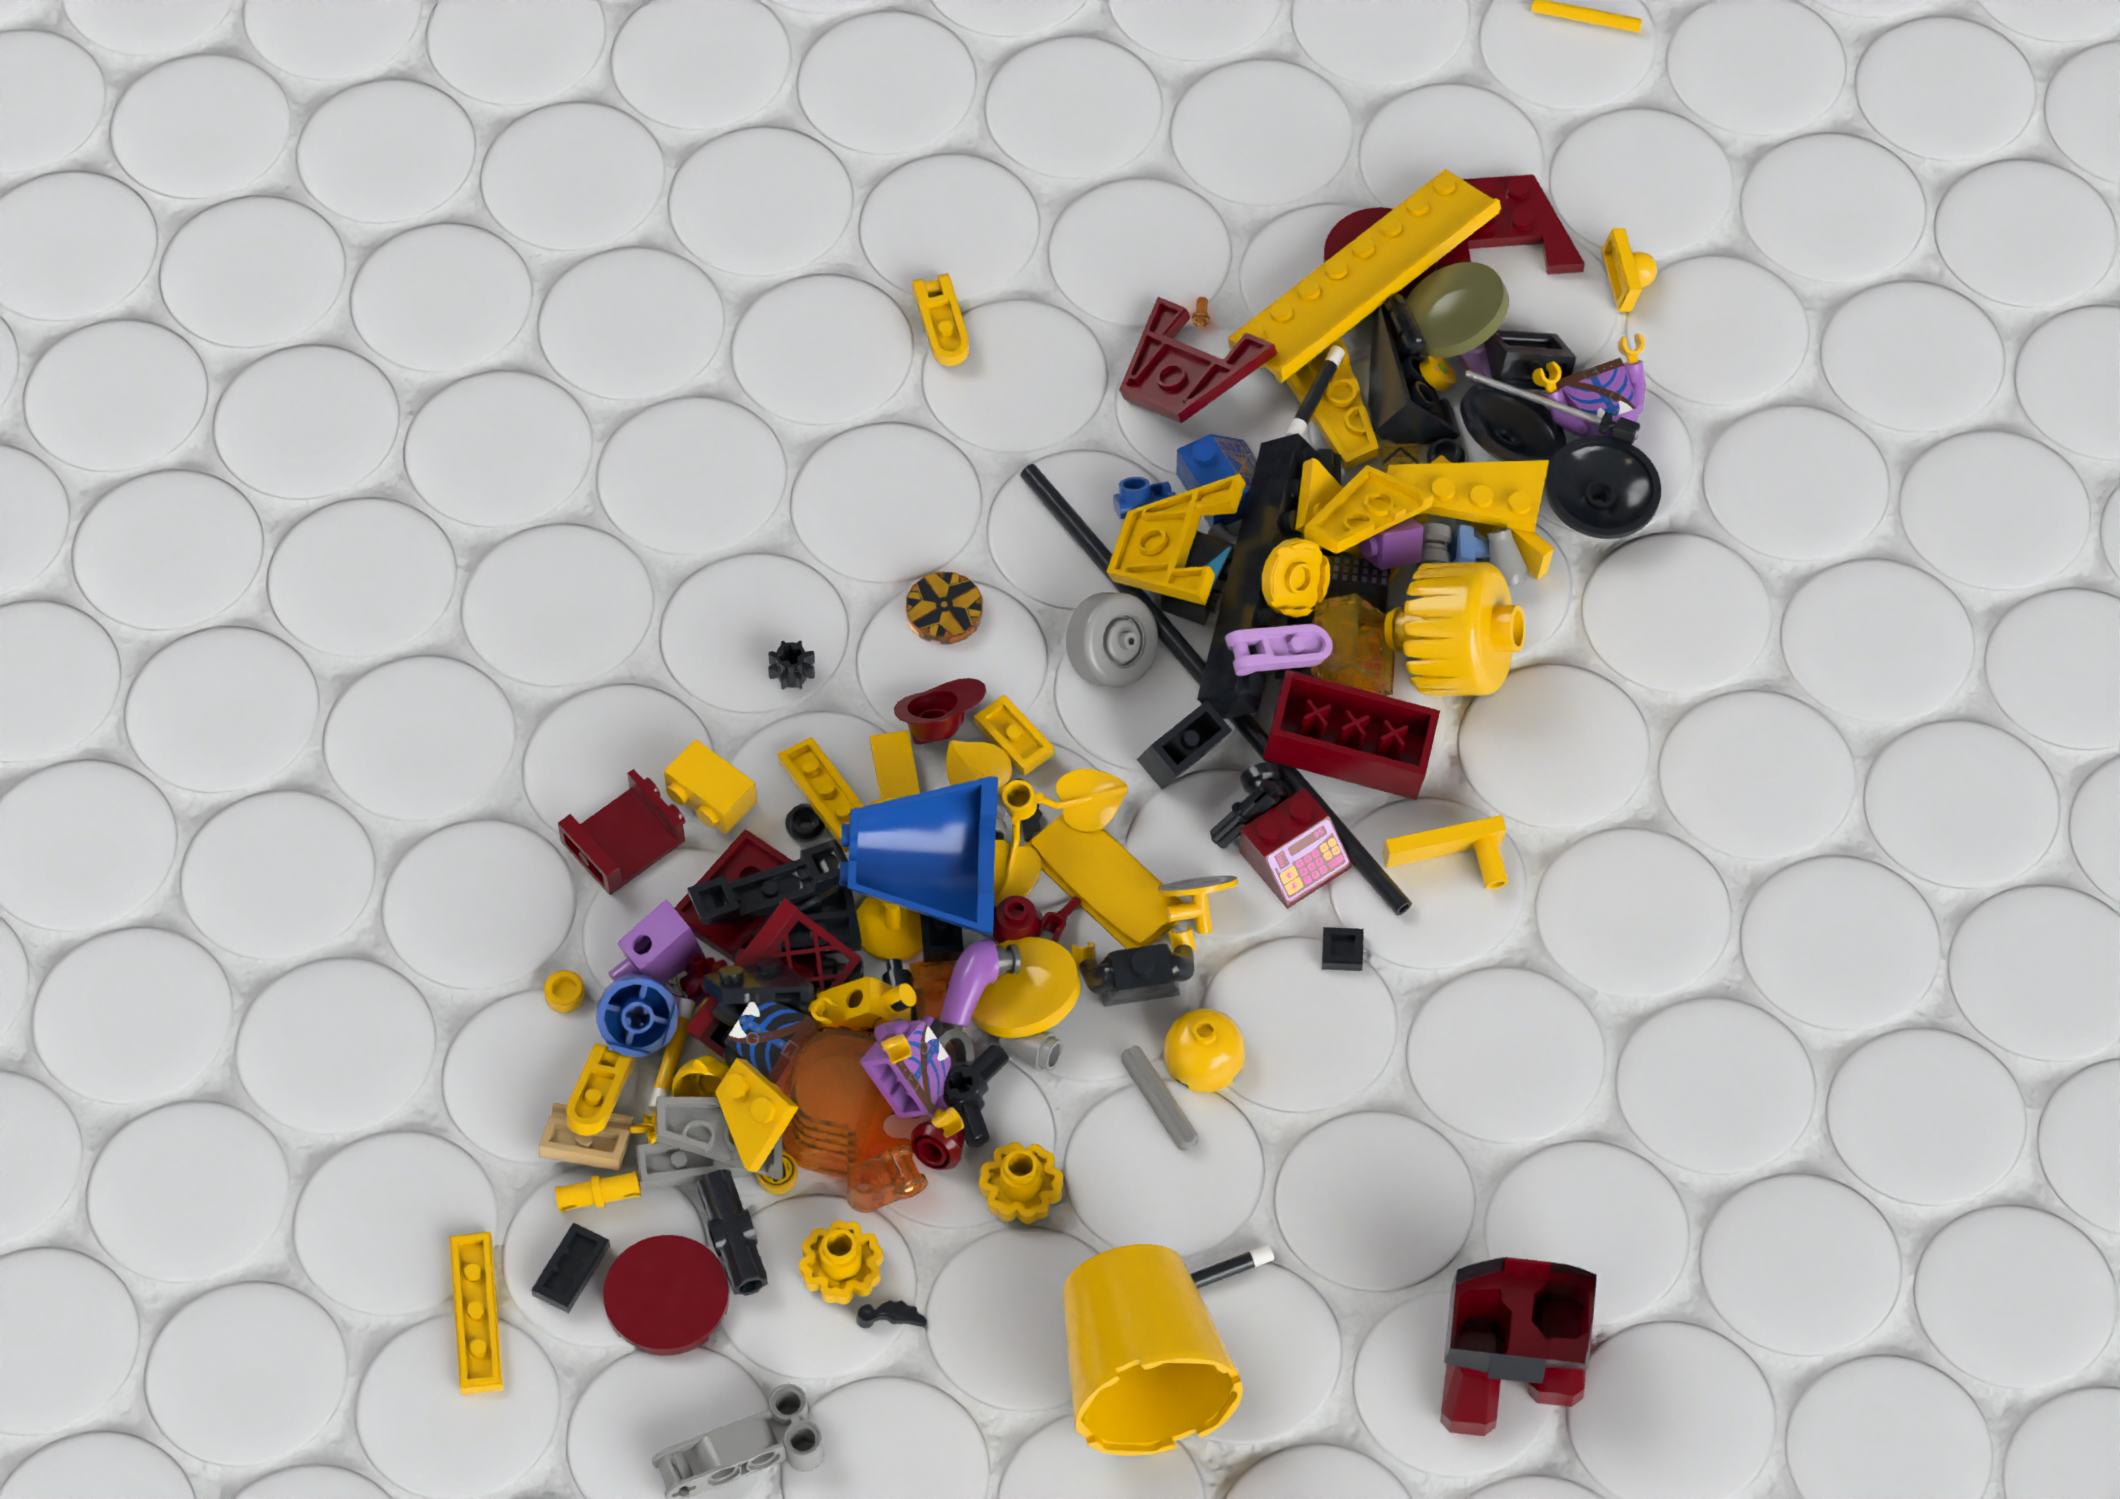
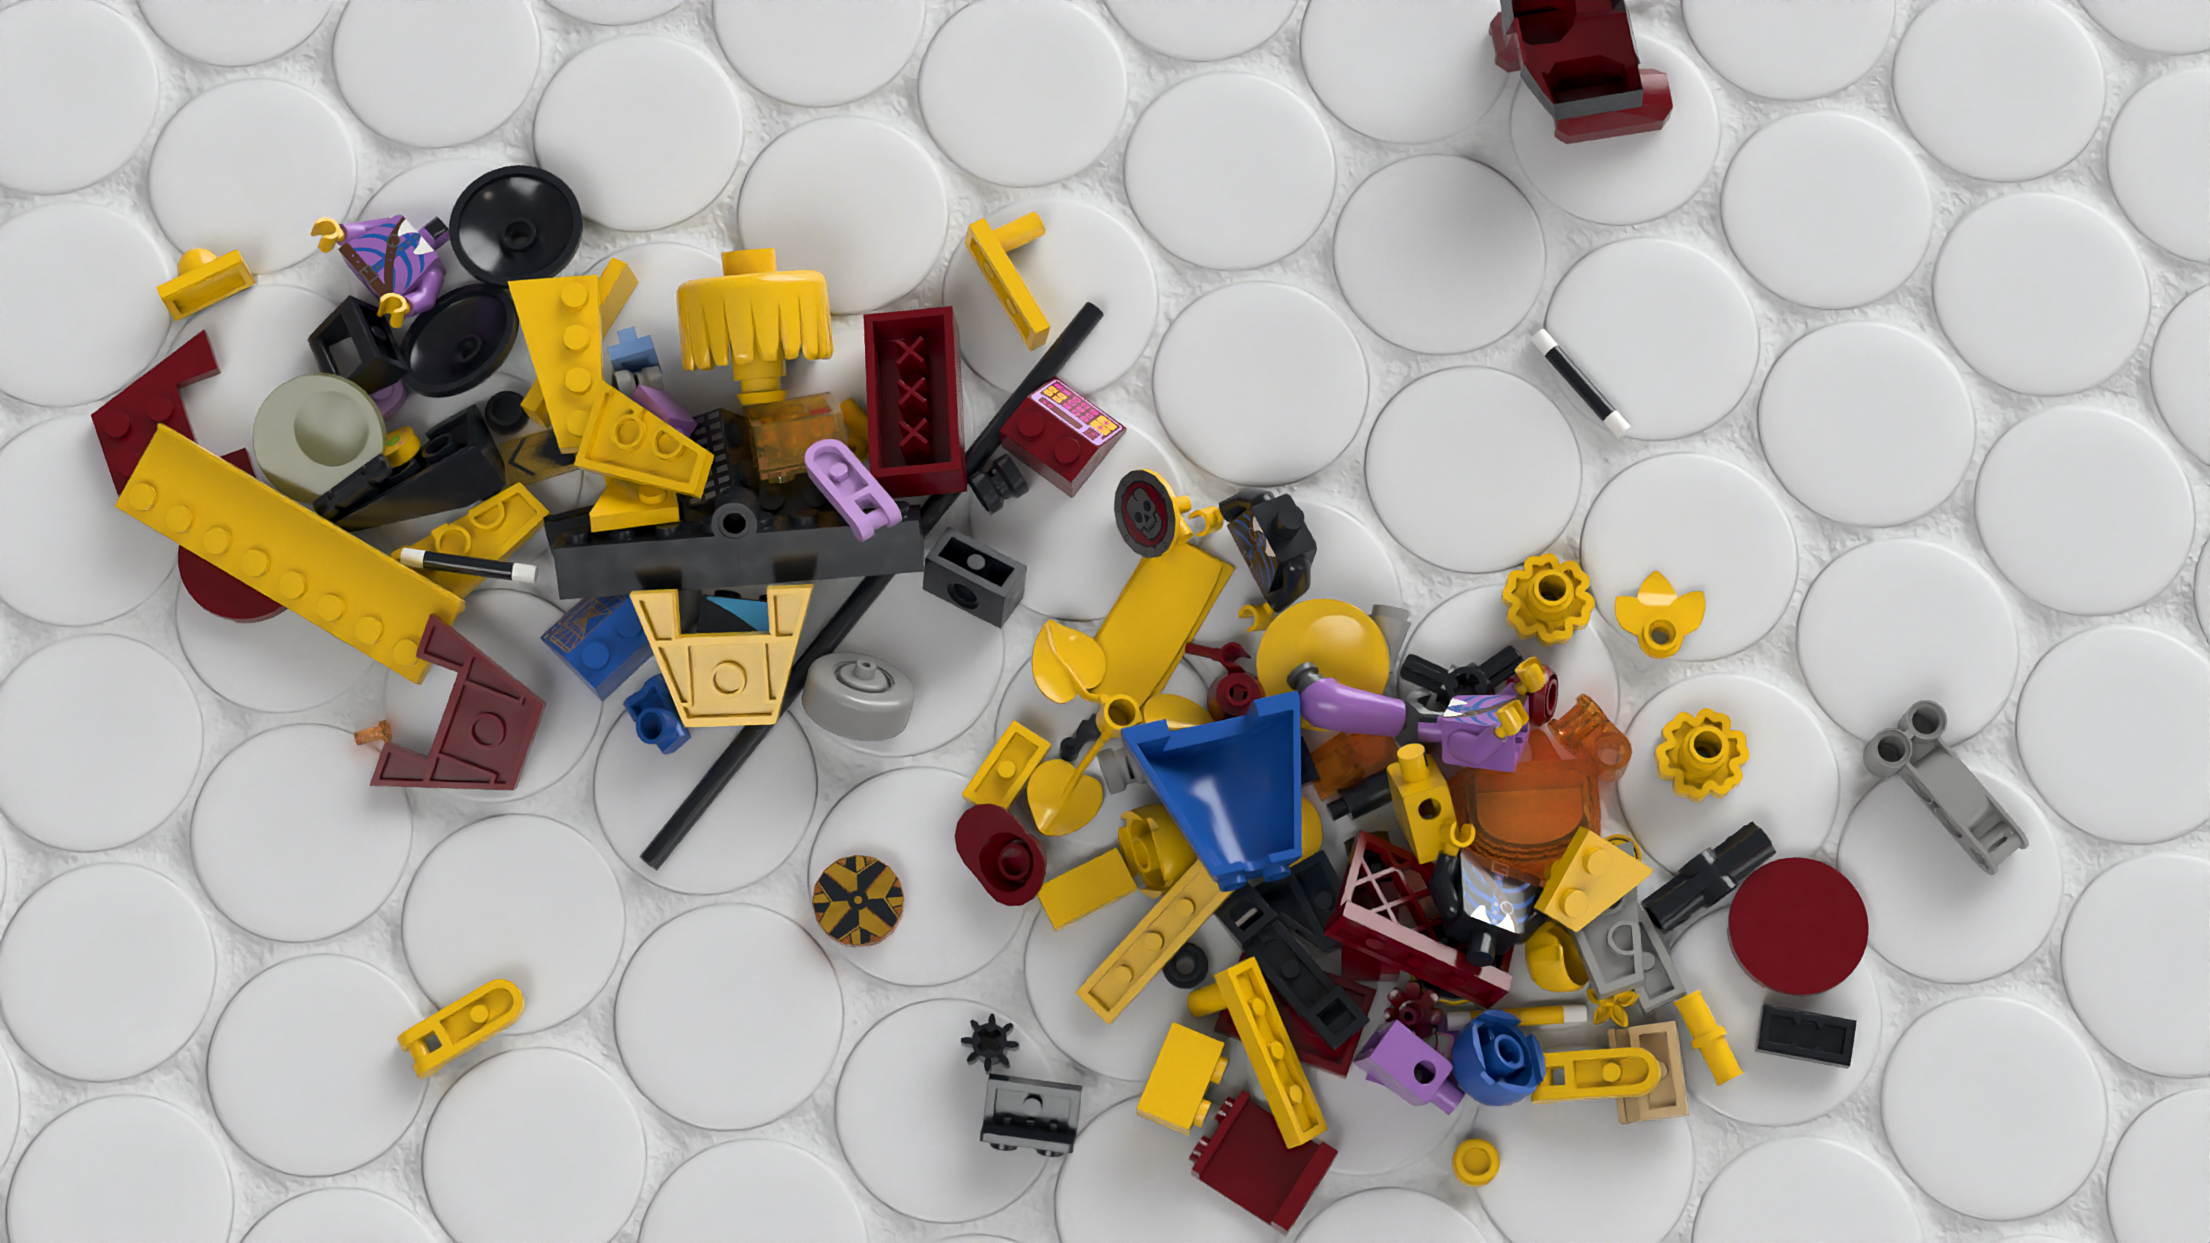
camera: 105 degrees left, 15 degrees up
(476, 1313) = (1886, 1122): yellow tile -> none
(706, 852) = (1267, 1046): none -> yellow piece
(722, 678) = (1031, 1115): none -> bracket
(756, 983) = (1452, 912): black wing -> none
(893, 1312) = (1734, 691): black piece -> none
(984, 1271) = (1662, 611): none -> yellow plate
(1144, 1353) = (1726, 398): yellow cone -> none
(1159, 1098) = (1399, 492): light grey axle -> none
(1204, 1050) = (1329, 462): yellow cylinder -> none
(1243, 813) = (1044, 489): black axle -> none
(1295, 577) = (750, 495): yellow tile -> none
(1342, 949) = (1161, 358): black tile -> none
(1506, 556) = (637, 307): light grey cone -> none
(1623, 429) = (440, 217): piece -> none

